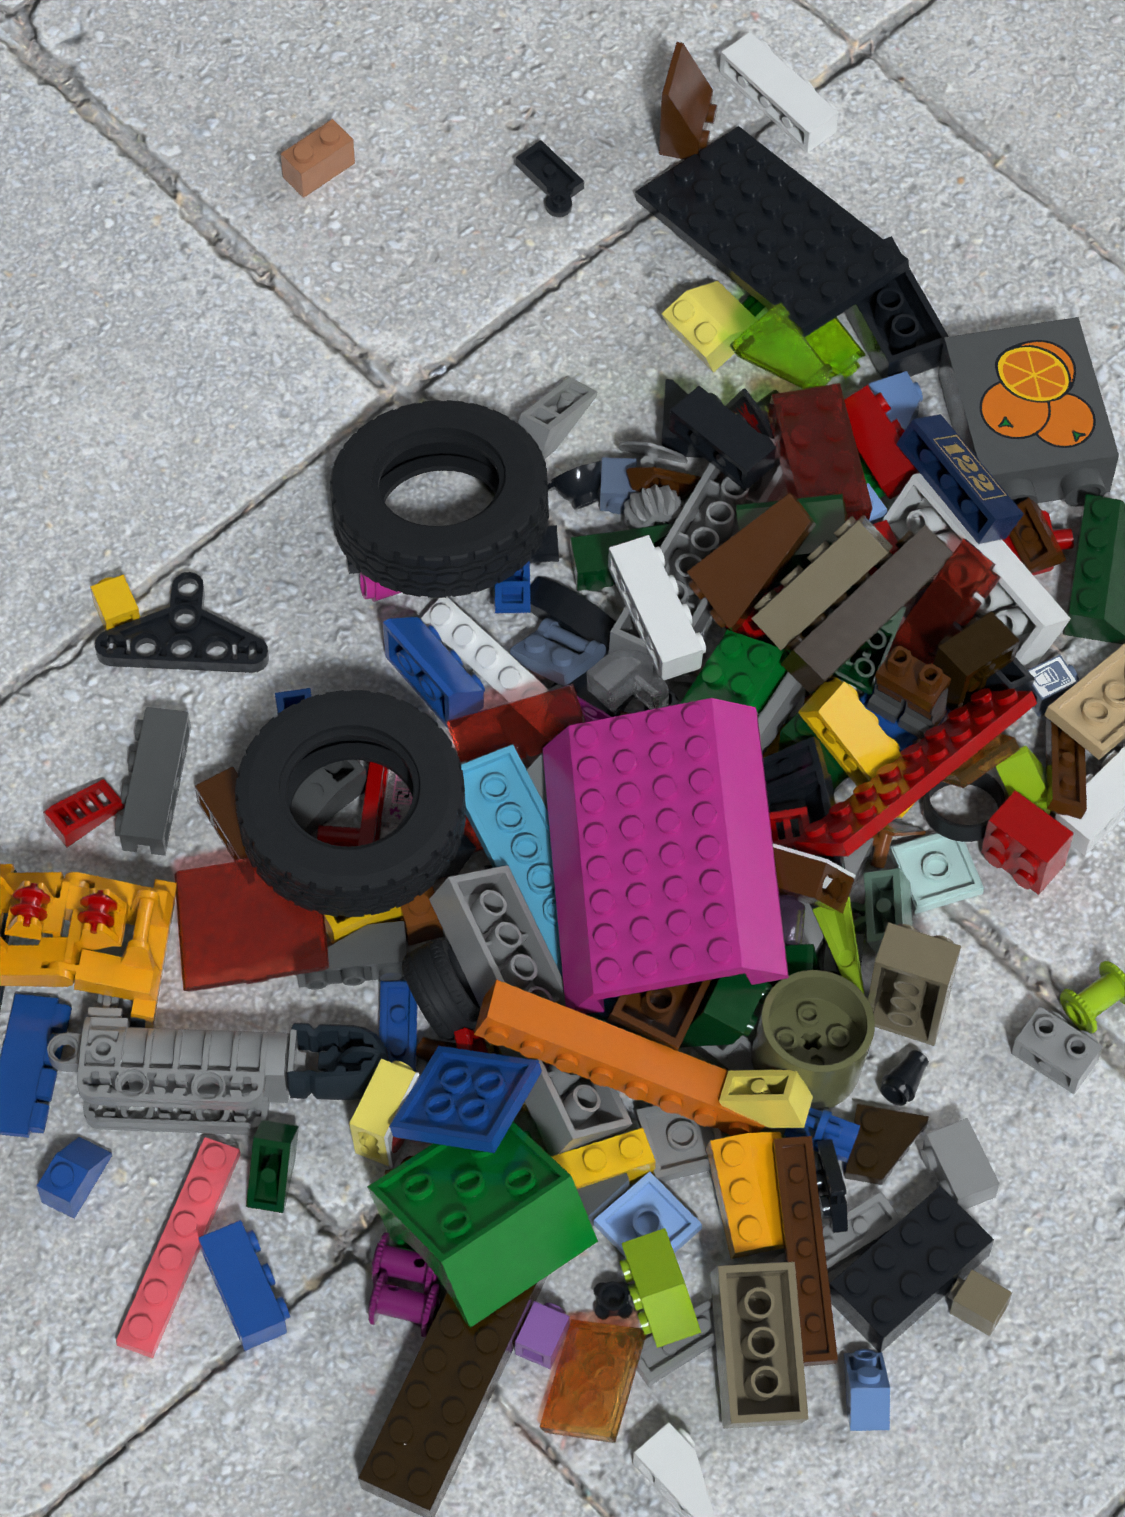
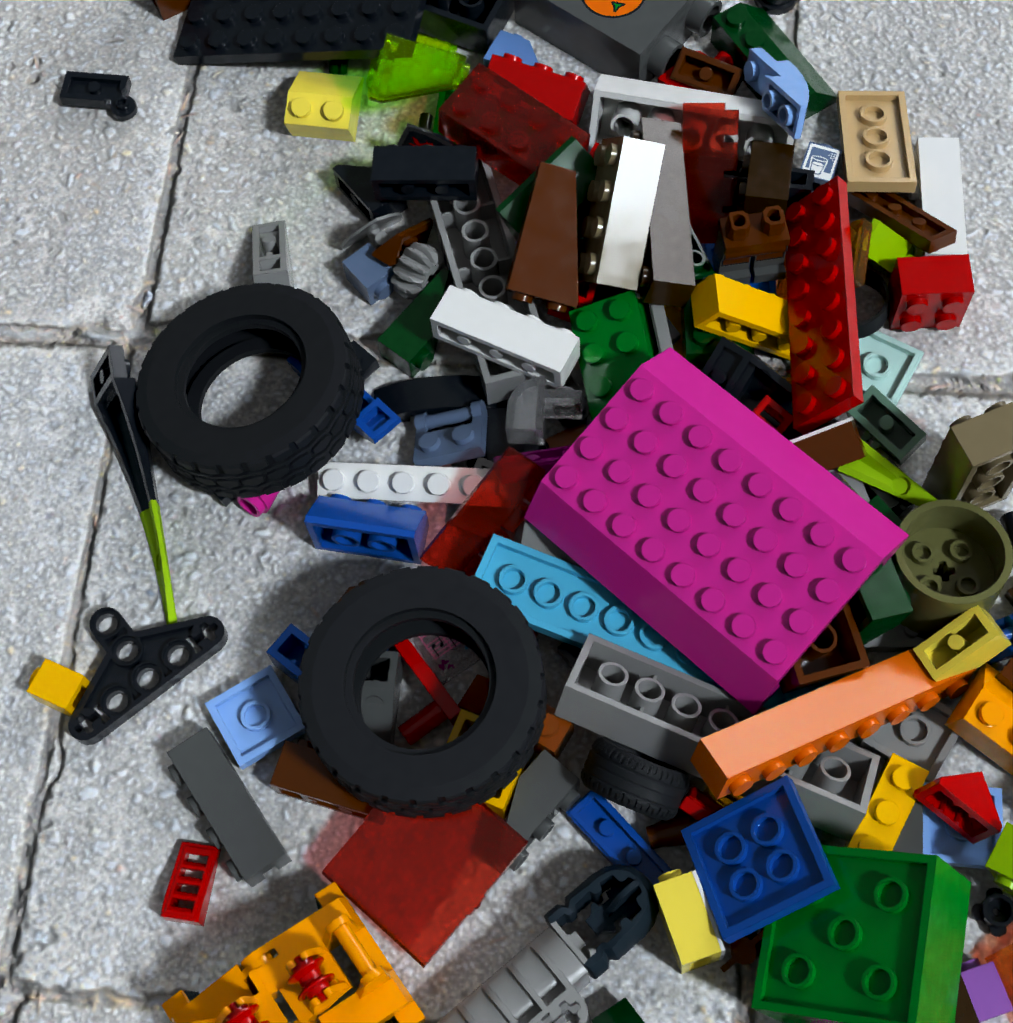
camera: 35 degrees left, 5 degrees up
(224, 733) = (256, 717): none -> light blue plate
(335, 432) = (116, 406): none -> black plate
(579, 484) = (343, 295): black piece -> none
(654, 1195) = (963, 804): none -> red slope
(959, 479) = (629, 66): dark blue brick -> none
(1057, 593) = (781, 87): none -> light blue slope

